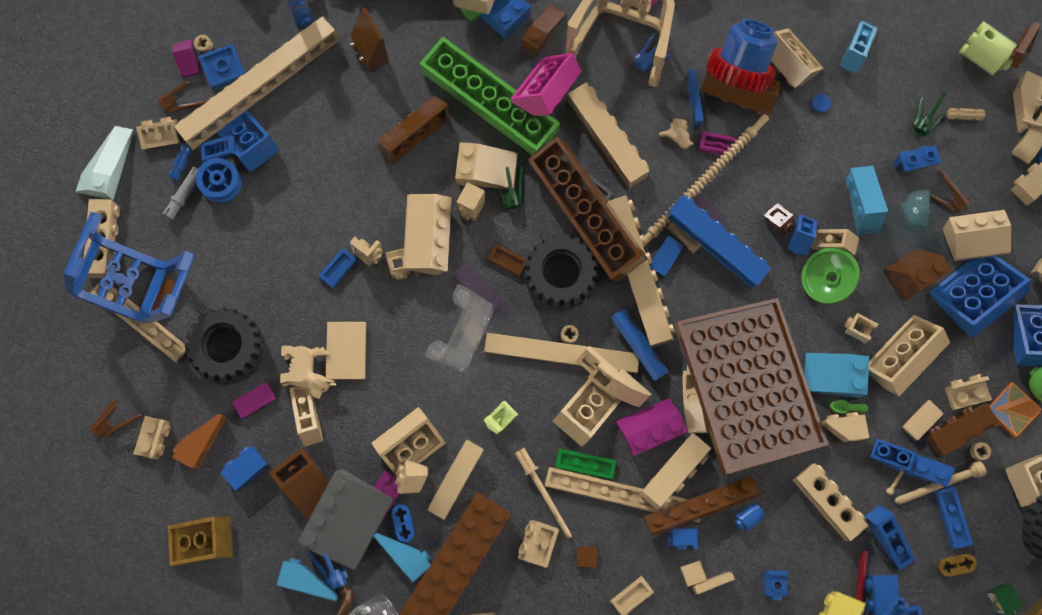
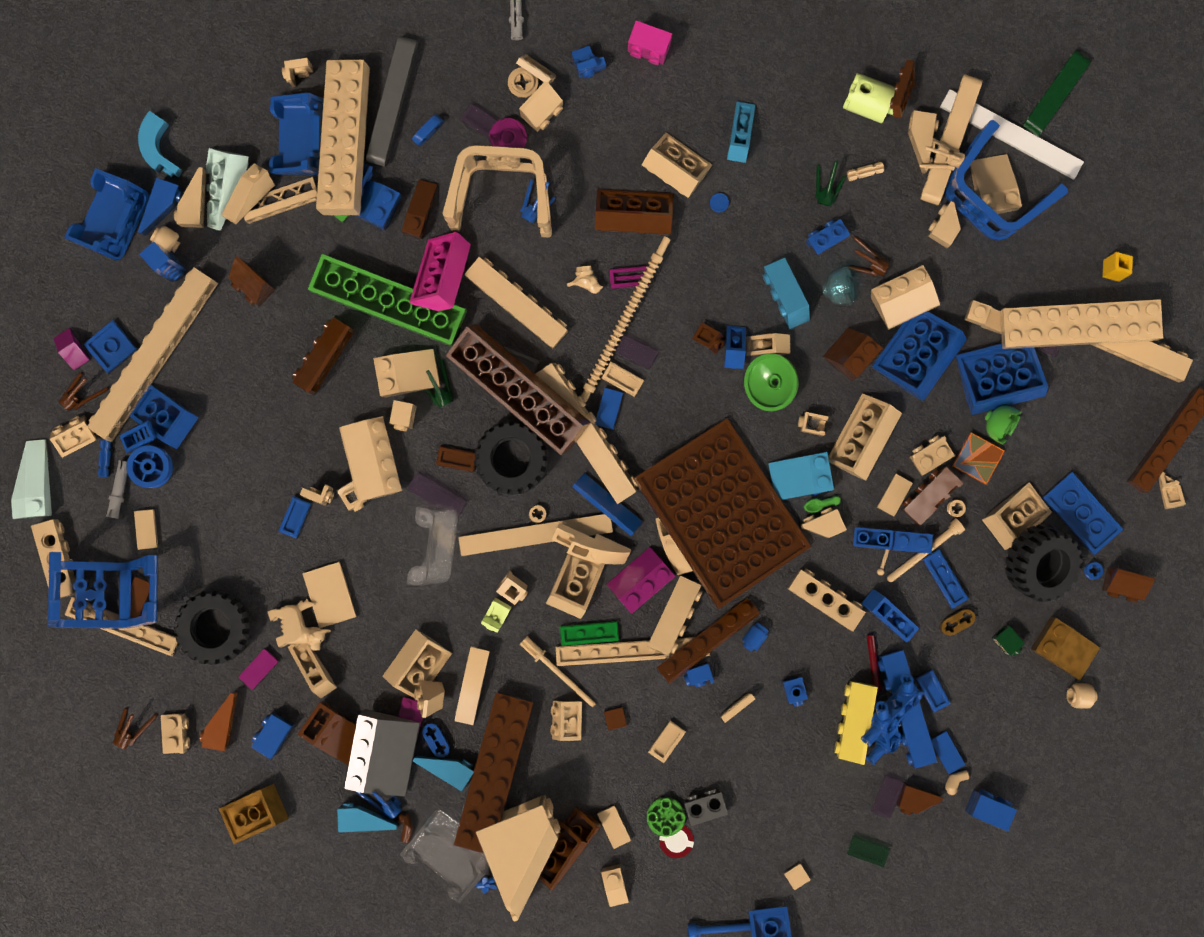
camera: 15 degrees left, 10 degrees up
(195, 236) = (146, 529): none -> tan tile
(197, 42) = (76, 329): tan bush -> none
(517, 397) = (512, 595): none -> tan brick
(693, 573) = (717, 703): tan tile -> none
(694, 98) = (591, 238): blue tile -> none
(718, 241) = (654, 381): blue brick -> none
(745, 57) = (628, 189): blue piece -> none

